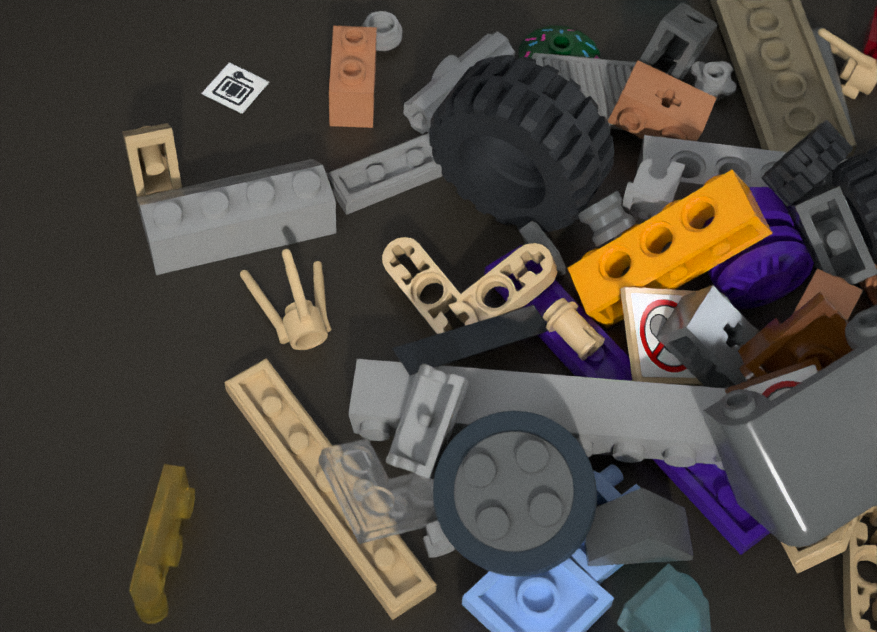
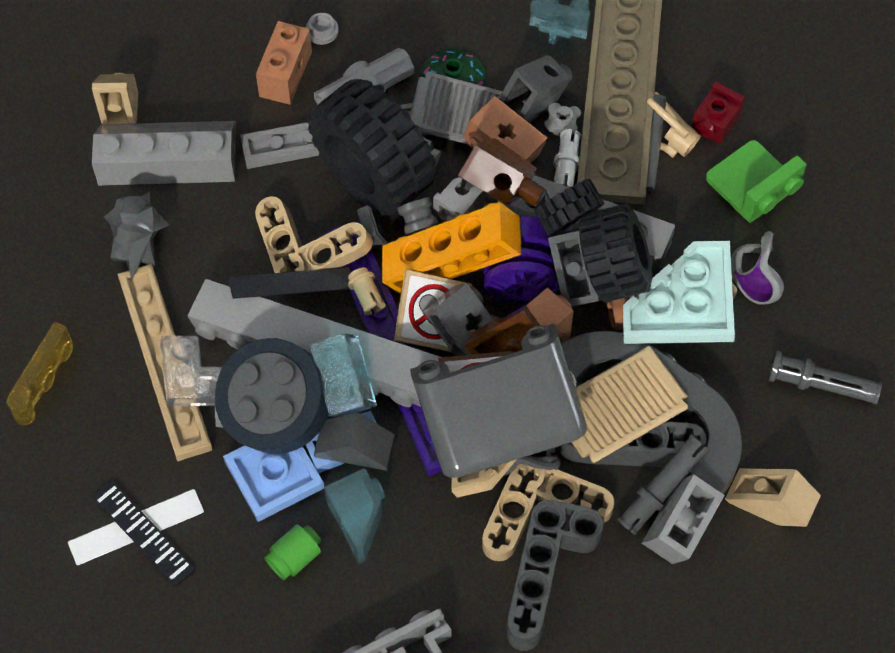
camera: 20 degrees right, 5 degrees up
(230, 319) = (133, 229): none -> dark grey hair
(235, 88) = (200, 52): white sticker -> none
(303, 324) = (185, 244): tan plant -> none
(427, 421) = (237, 329): light grey hinge -> none
(607, 441) = (343, 374): none -> clear light blue brick
(681, 137) = (491, 168): none -> reddish brown torso
(740, 122) = (567, 159): none -> white pin

